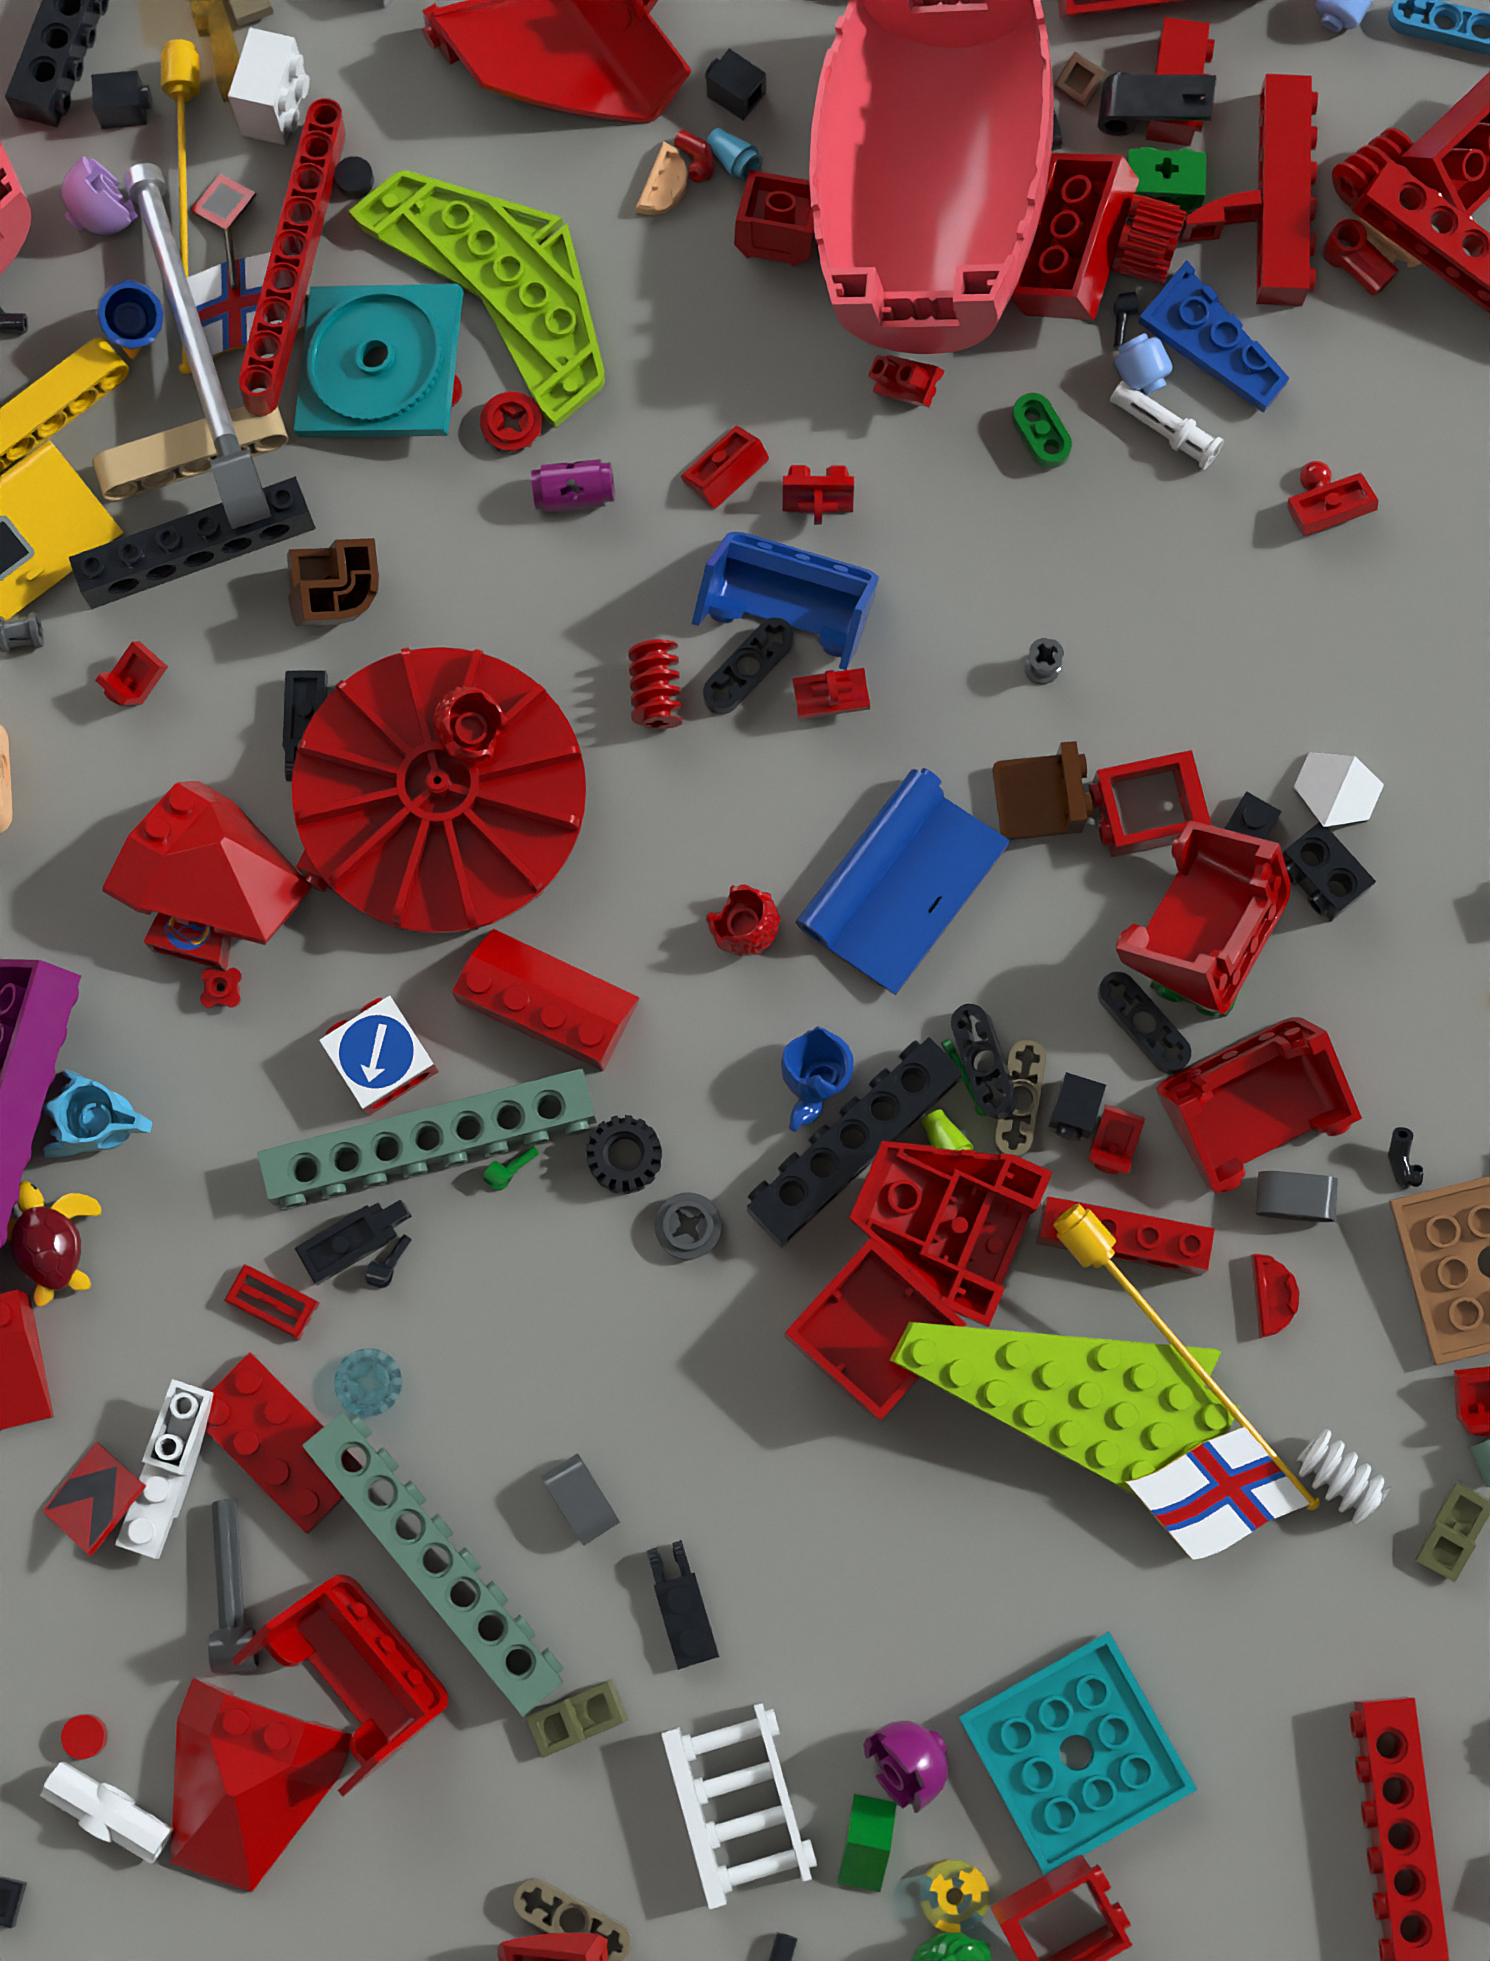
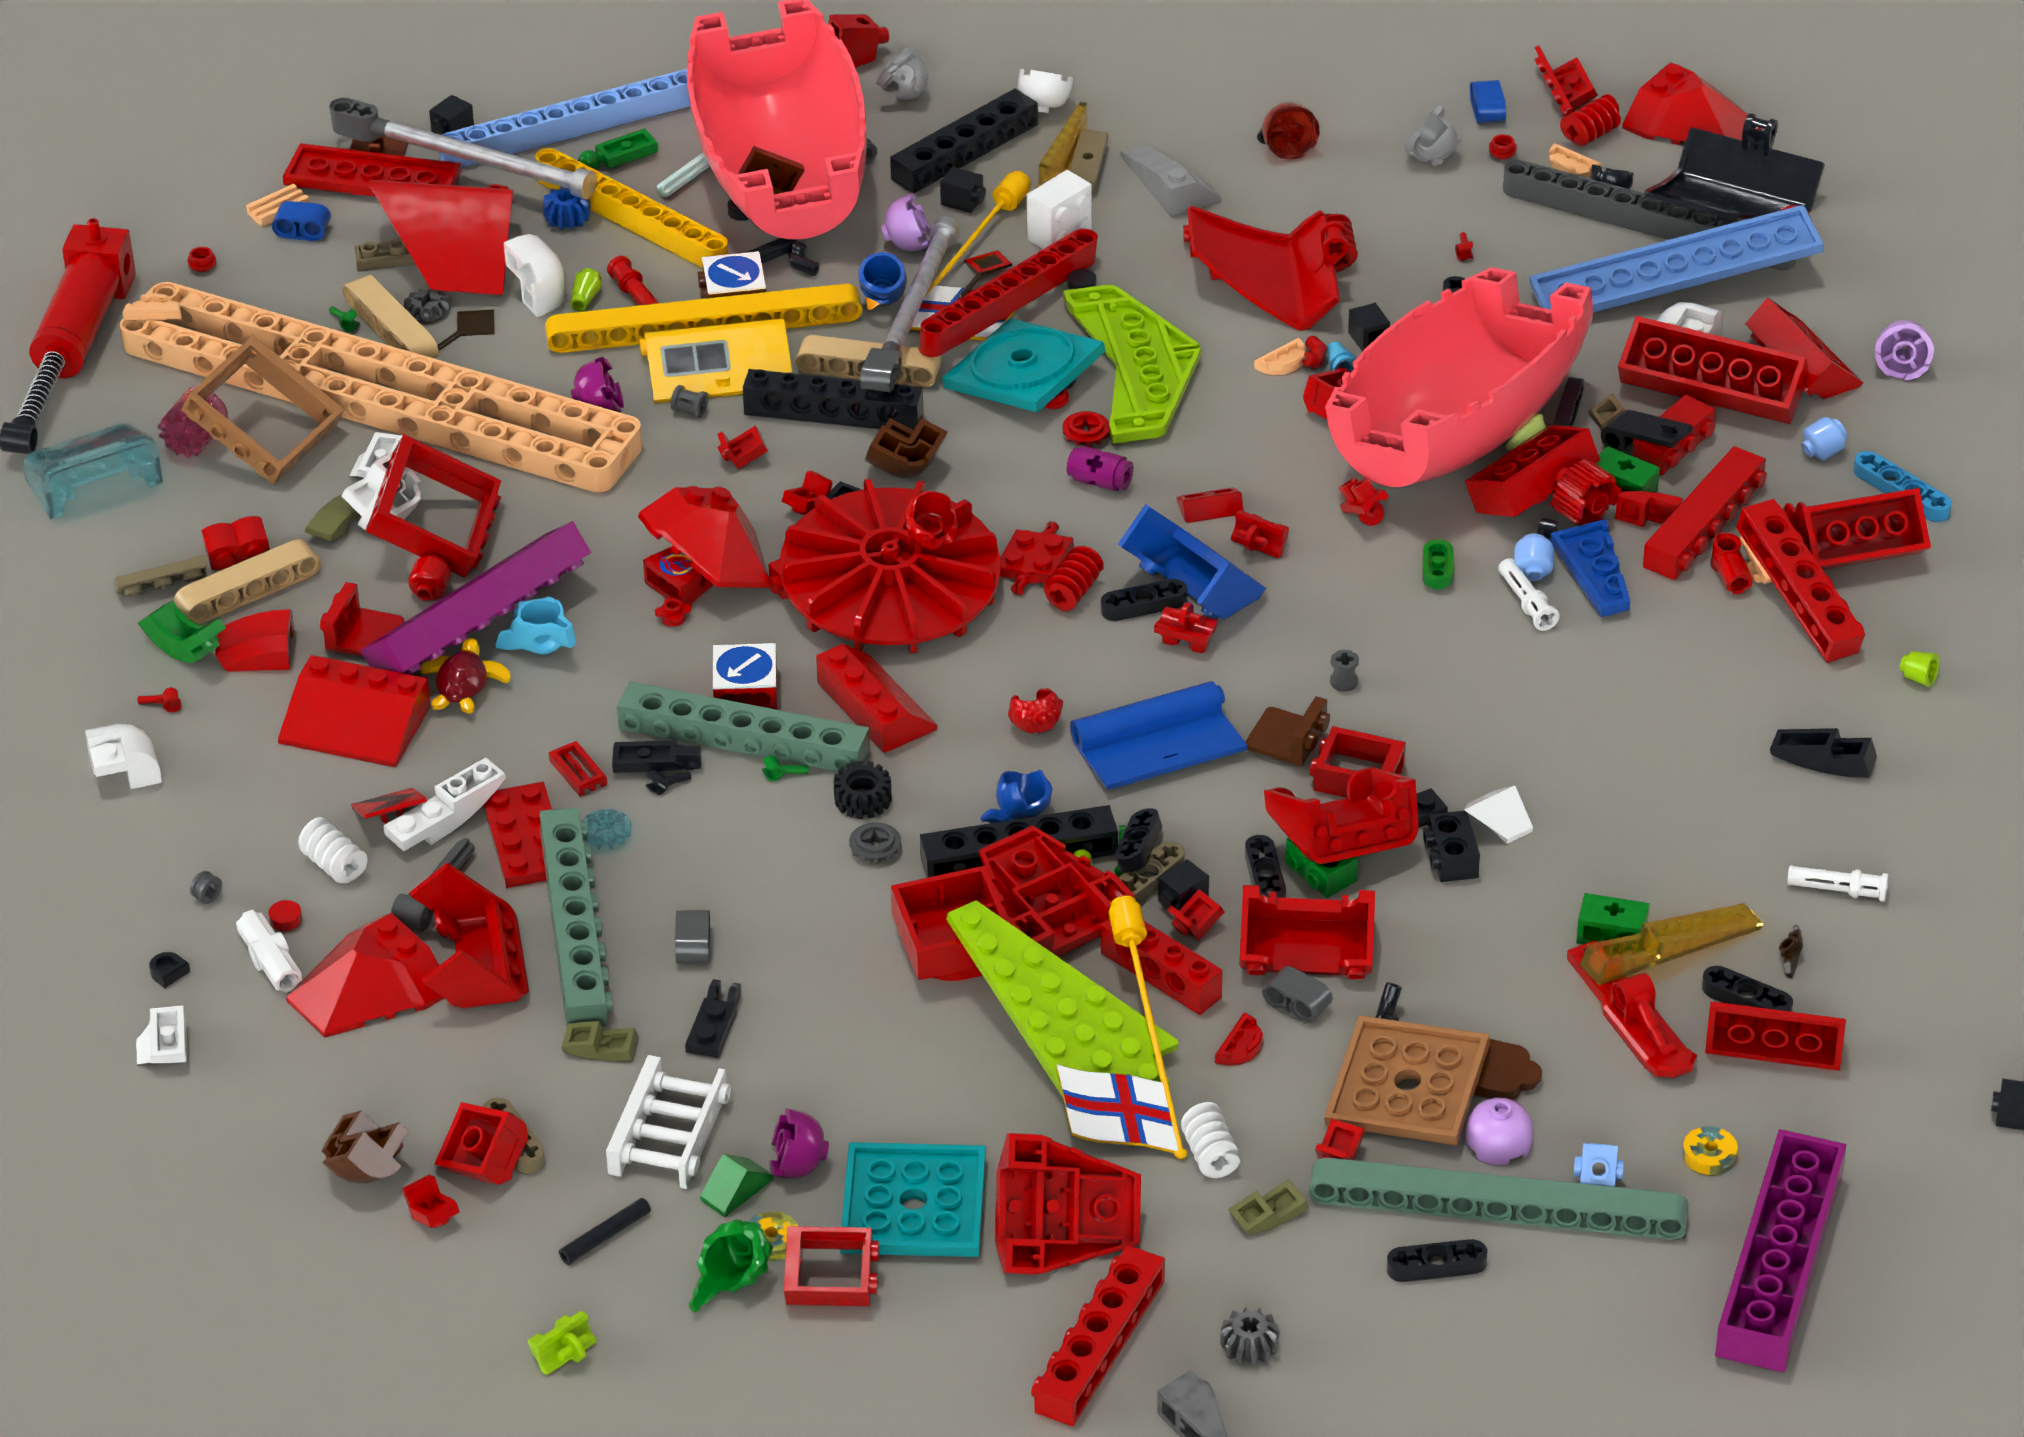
camera: 30 degrees right, 35 degrees down
(75, 1617) = (332, 851): none -> white piece
(261, 714) = (803, 498): none -> red bracket
(583, 665) = (1033, 556): none -> red plate
(1257, 1695) = (1060, 1205): none -> red wedge
(1327, 502) = (1610, 672): red plate -> none

